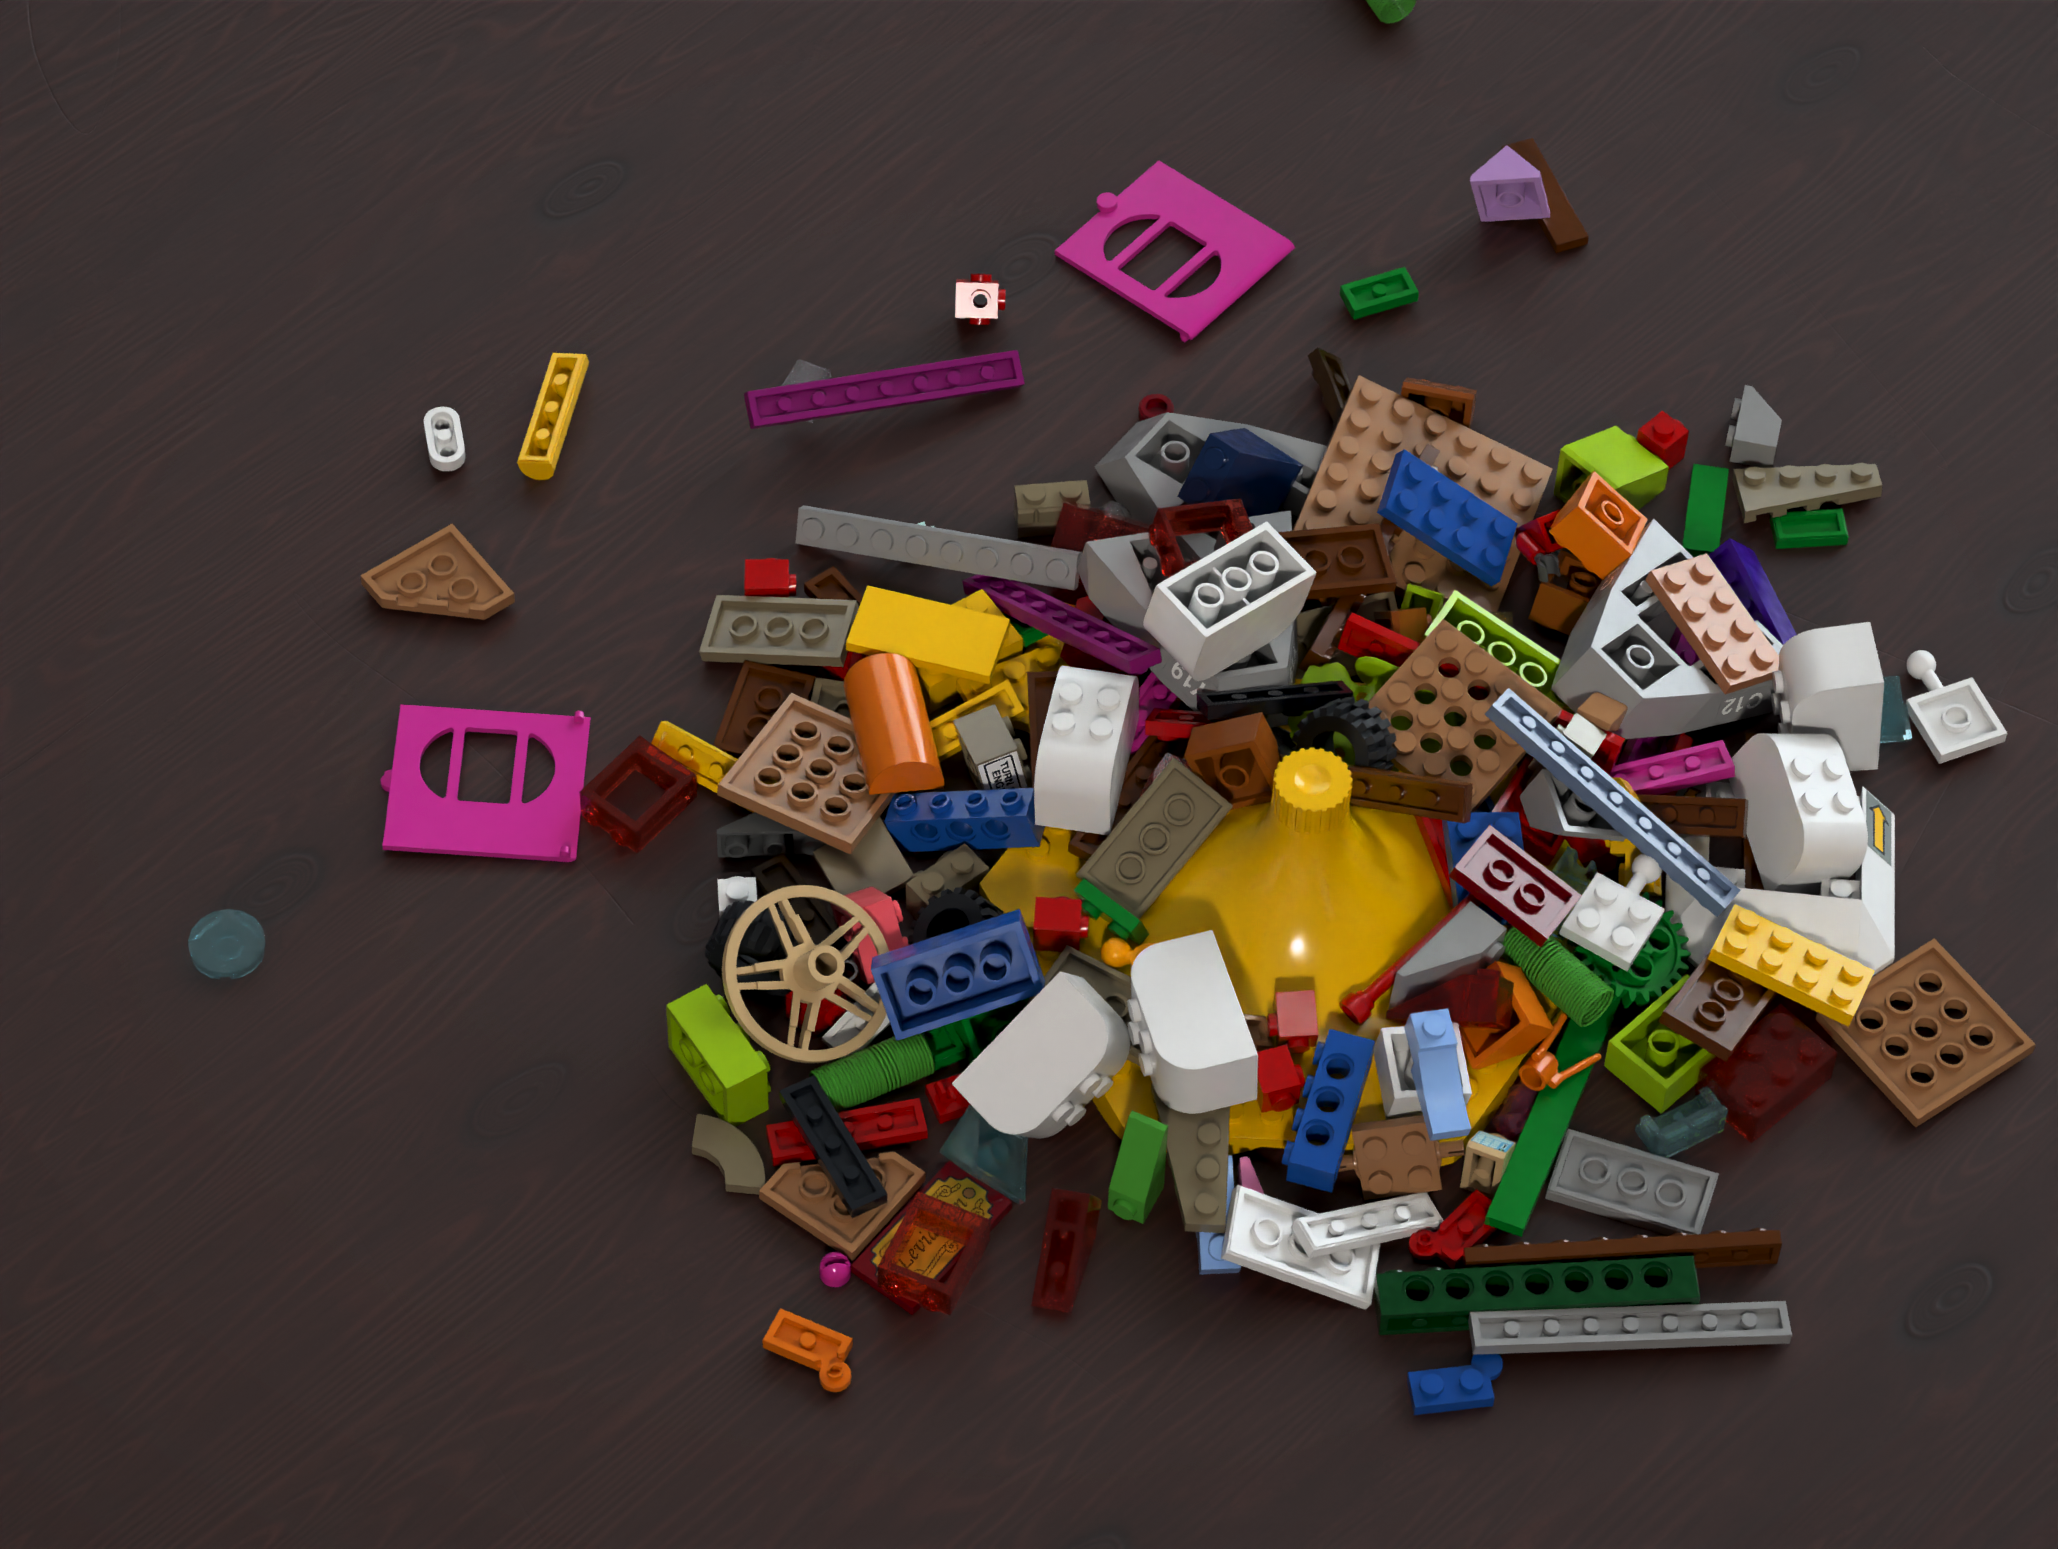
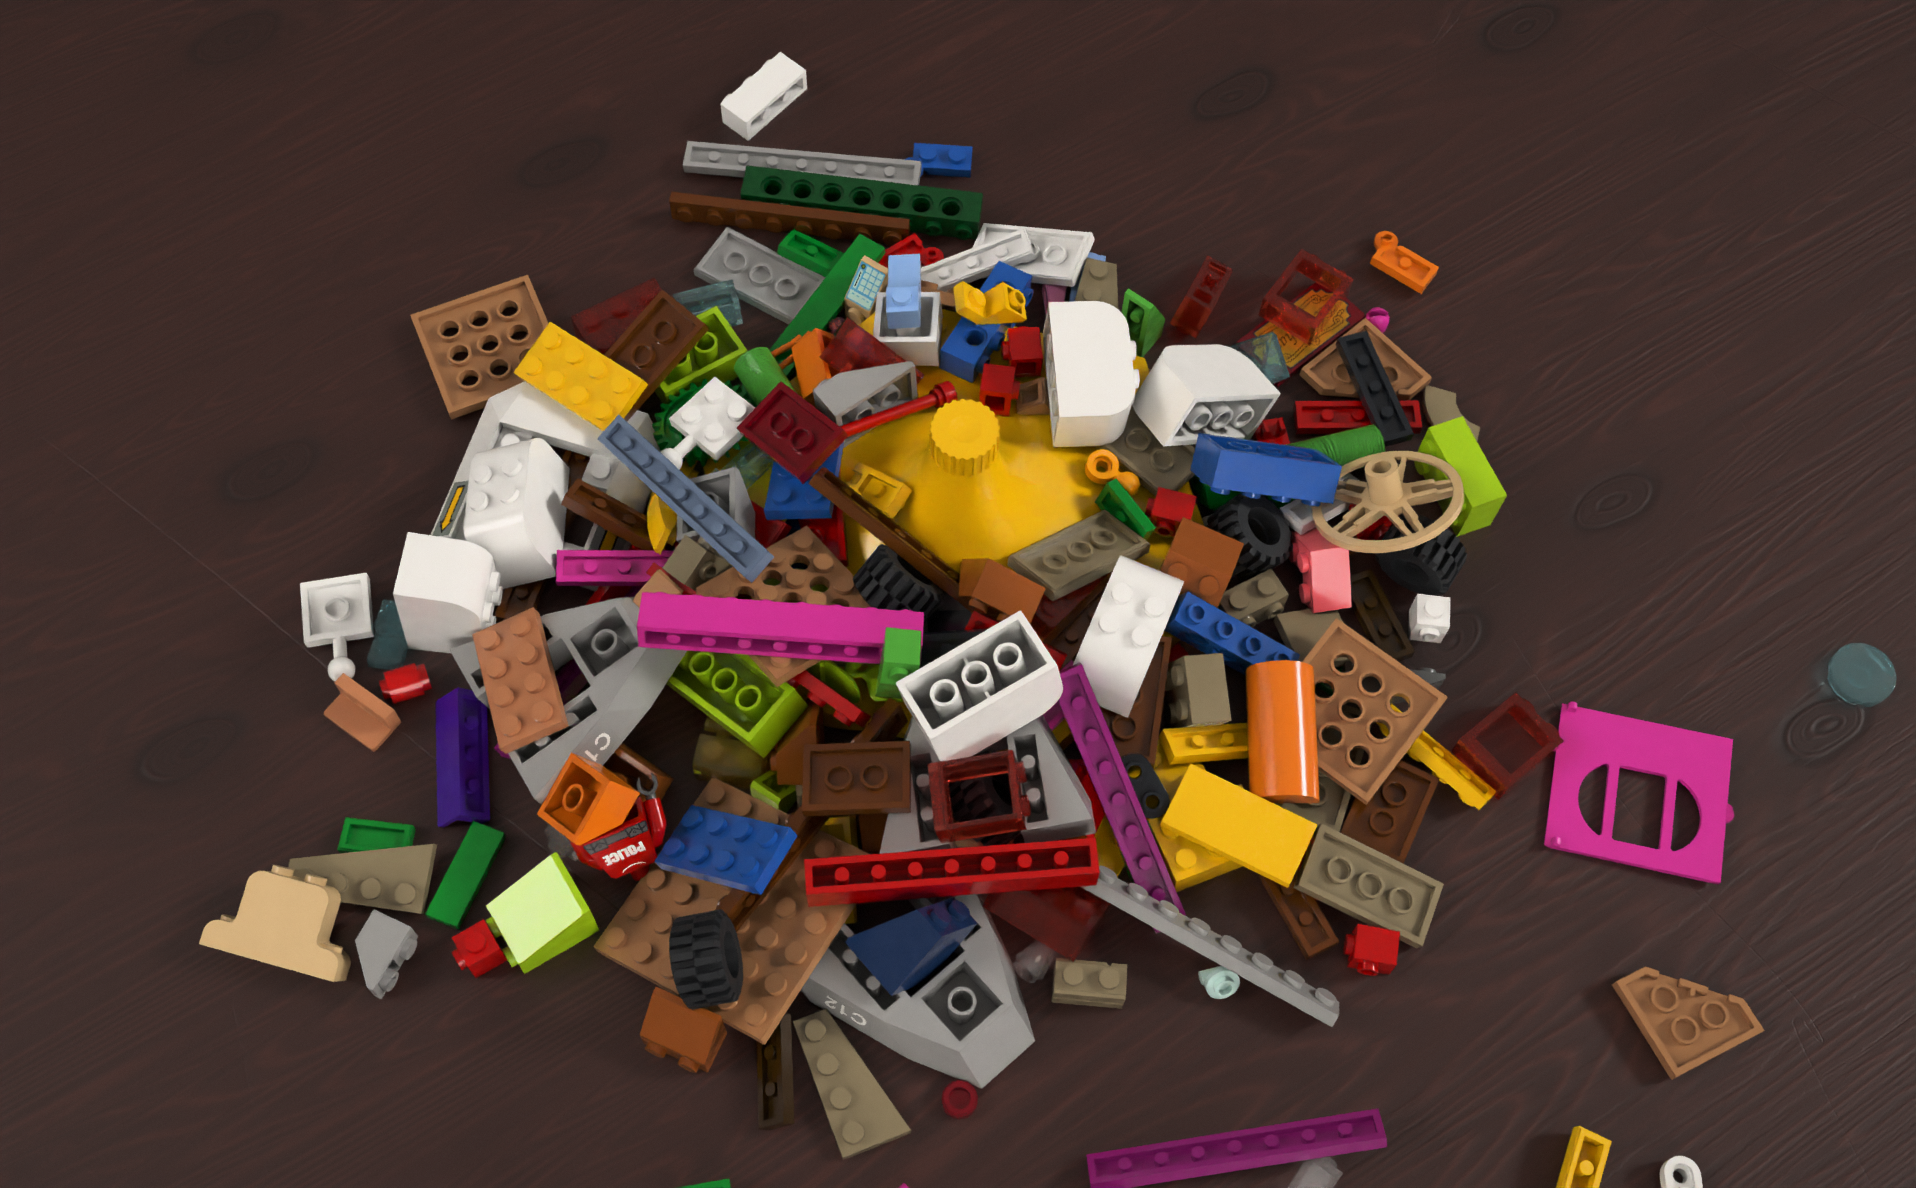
camera: 170 degrees left, 10 degrees up
(1017, 858) = (1202, 560): none -> dark orange slope
(1034, 653) = (1147, 784): none -> black plate
(1262, 396) = (850, 1094): none -> dark tan wing
(1285, 485) = (951, 872): none -> red brick
(1319, 627) = (898, 659): none -> bright green slope
(1324, 1099) = (995, 306): none -> yellow slope
(1402, 848) = (879, 489): none -> yellow plate
(1430, 401) = (706, 959): none -> black tyre
(1453, 650) = (768, 627): none -> dark pink brick
(1577, 1214) = (809, 252): none -> green plate
(1718, 1425) = (763, 96): none -> white brick
(1856, 426) = (284, 924): none -> tan brick
(1891, 636) = (362, 714): none -> nougat panel

